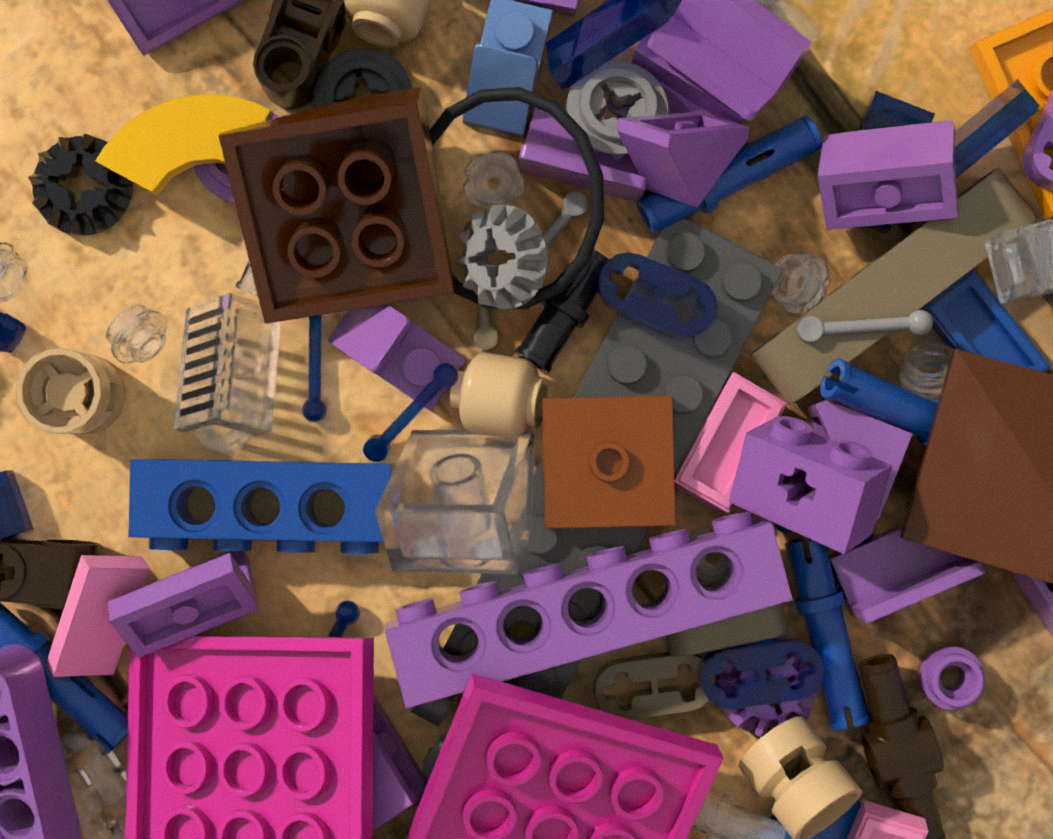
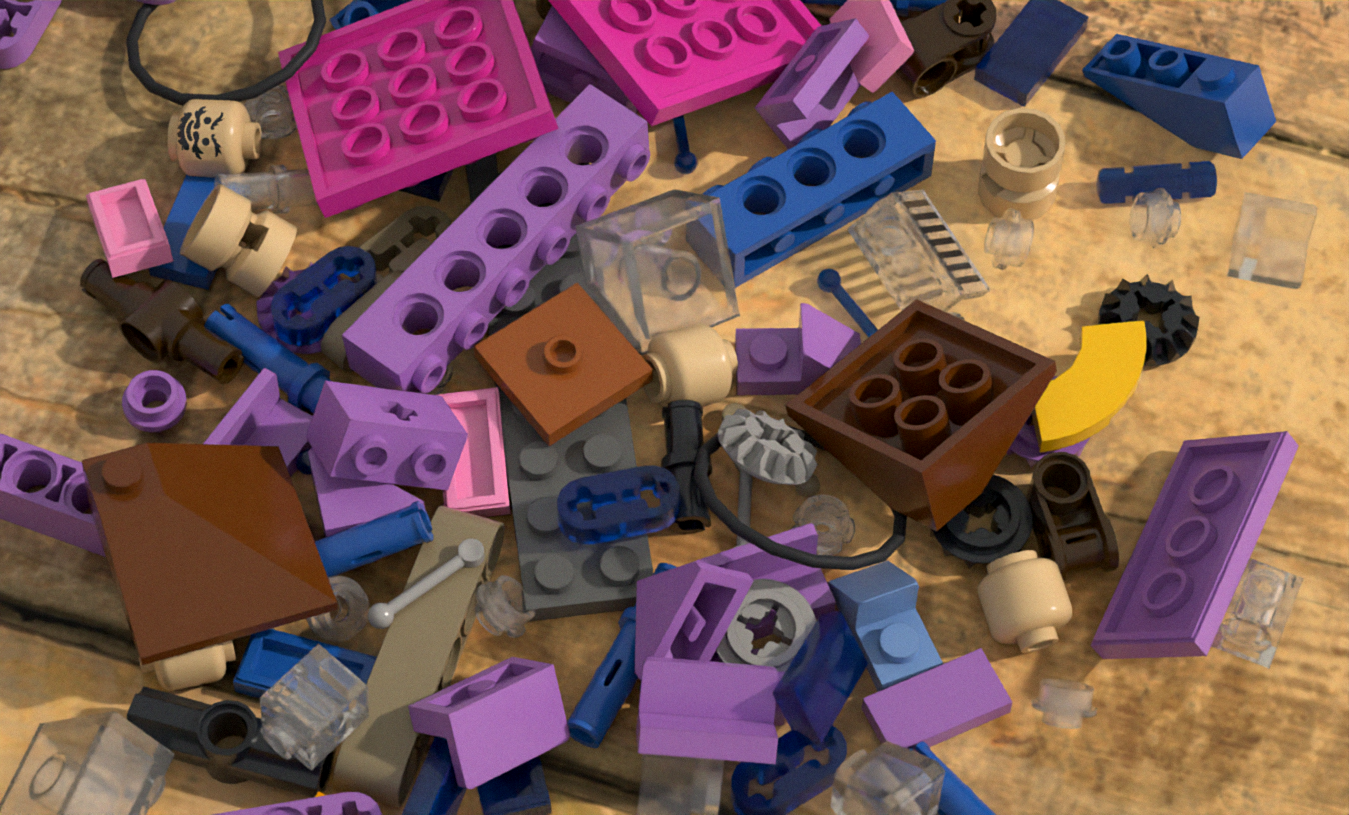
camera: 145 degrees right, 30 degrees down
(377, 445) = (756, 286): clear blue hinge -> none

